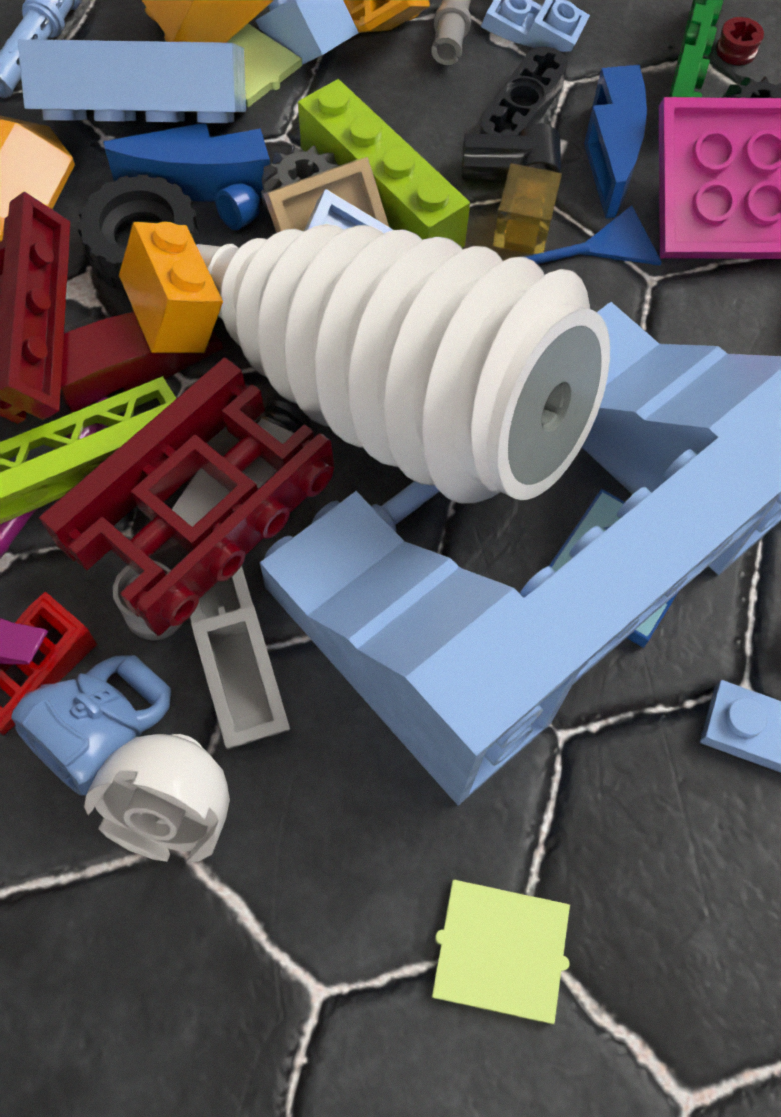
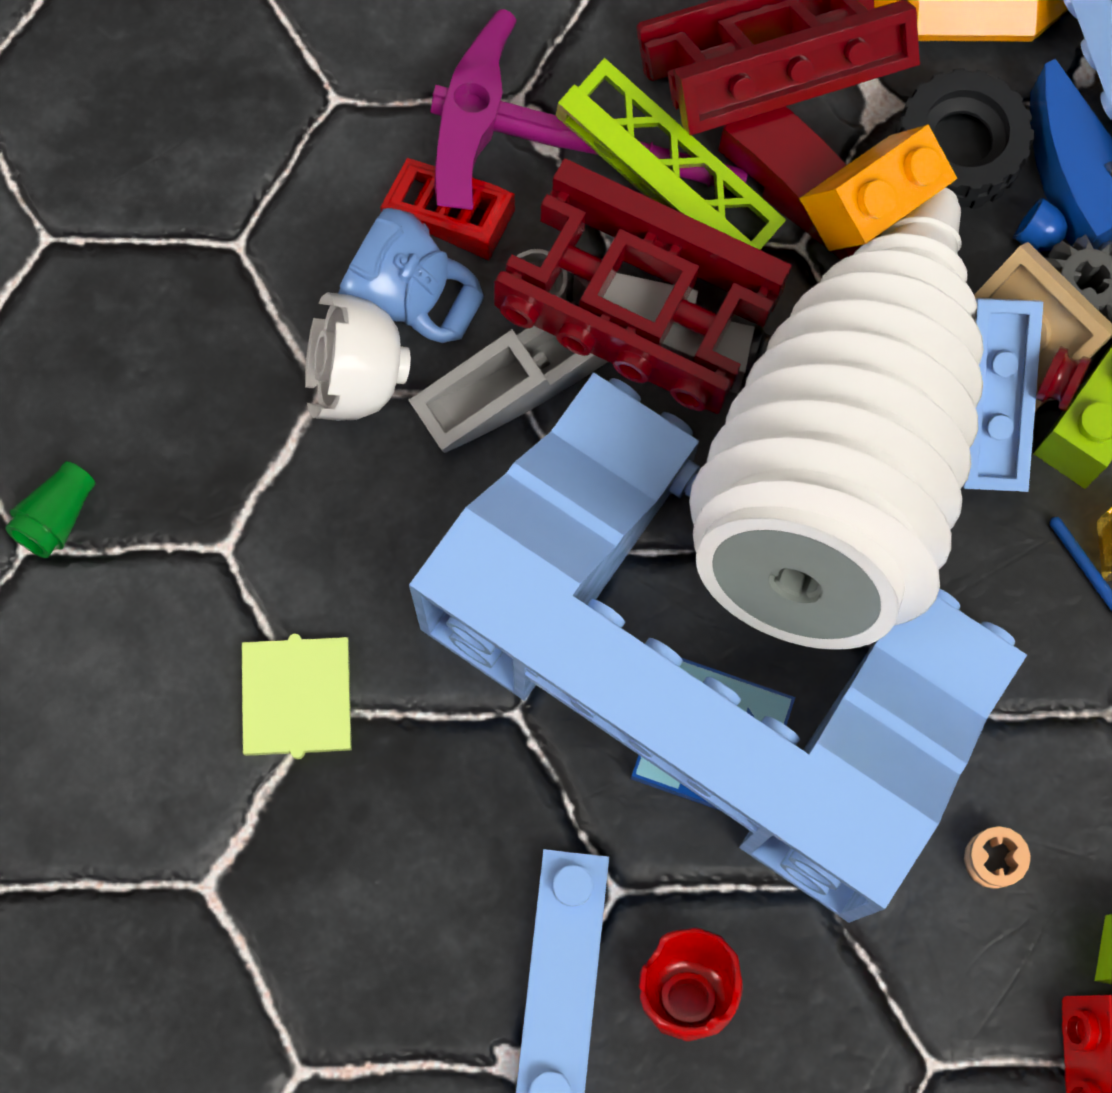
camera: 75 degrees right, 10 degrees up
(390, 202) = (1063, 378): none -> dark red bush

